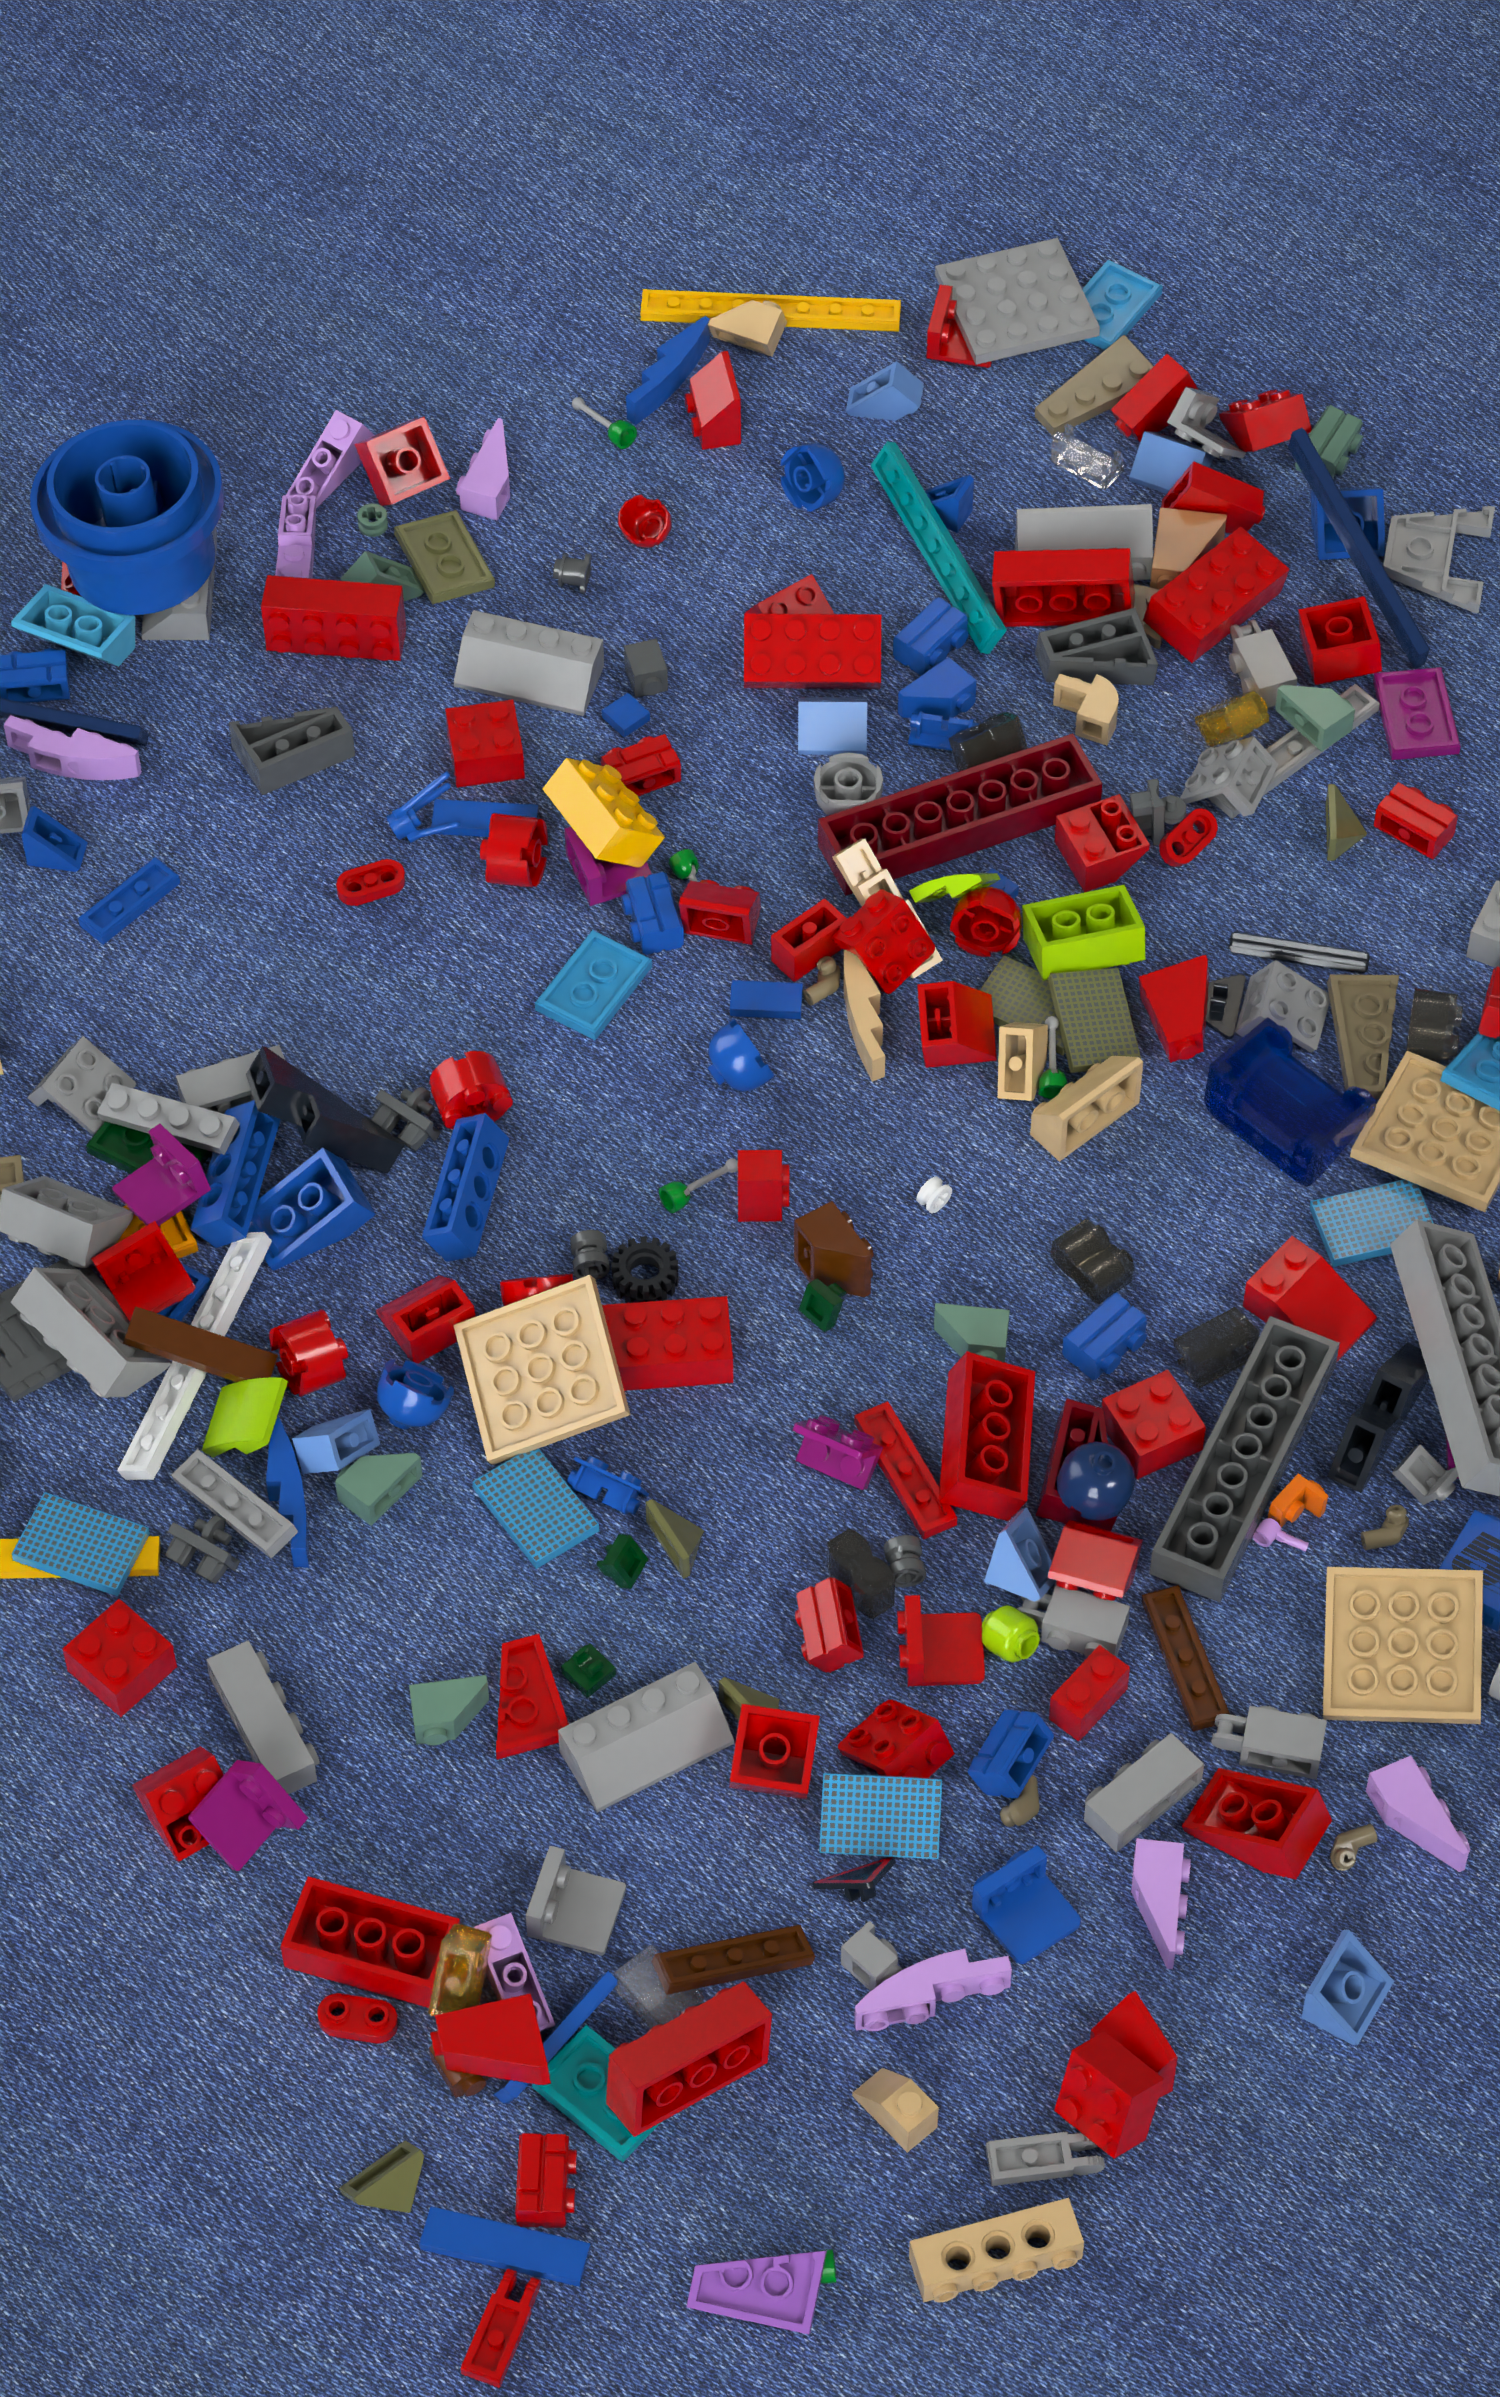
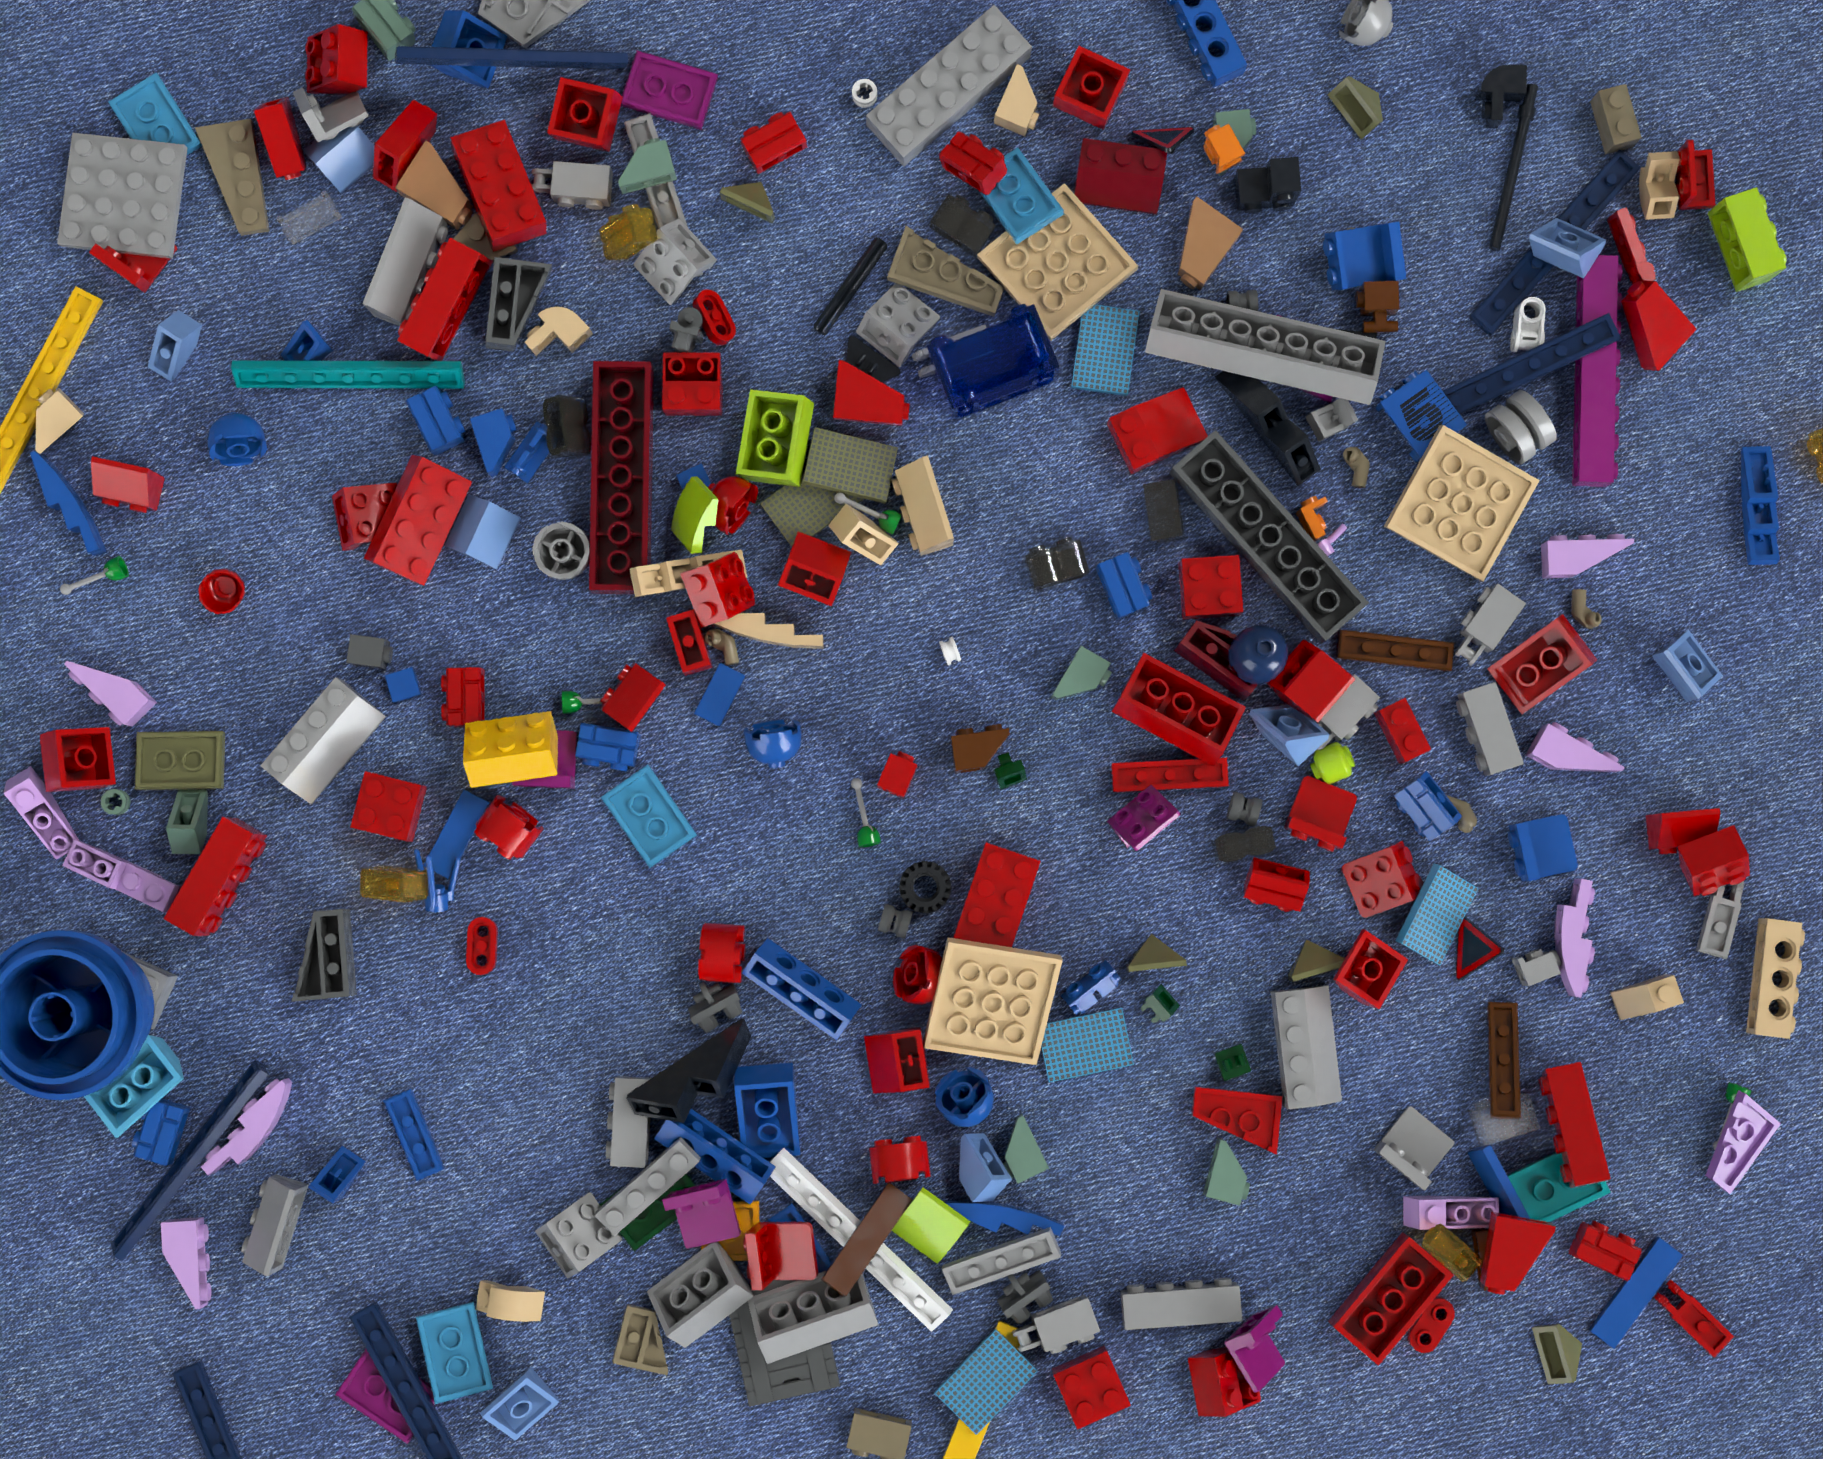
camera: 65 degrees left, 30 degrees up
(181, 1597) = (1059, 1326): none -> light grey brick
(401, 768) = (393, 883): none -> clear yellow brick
(573, 571) = (244, 667): dark grey brick -> none

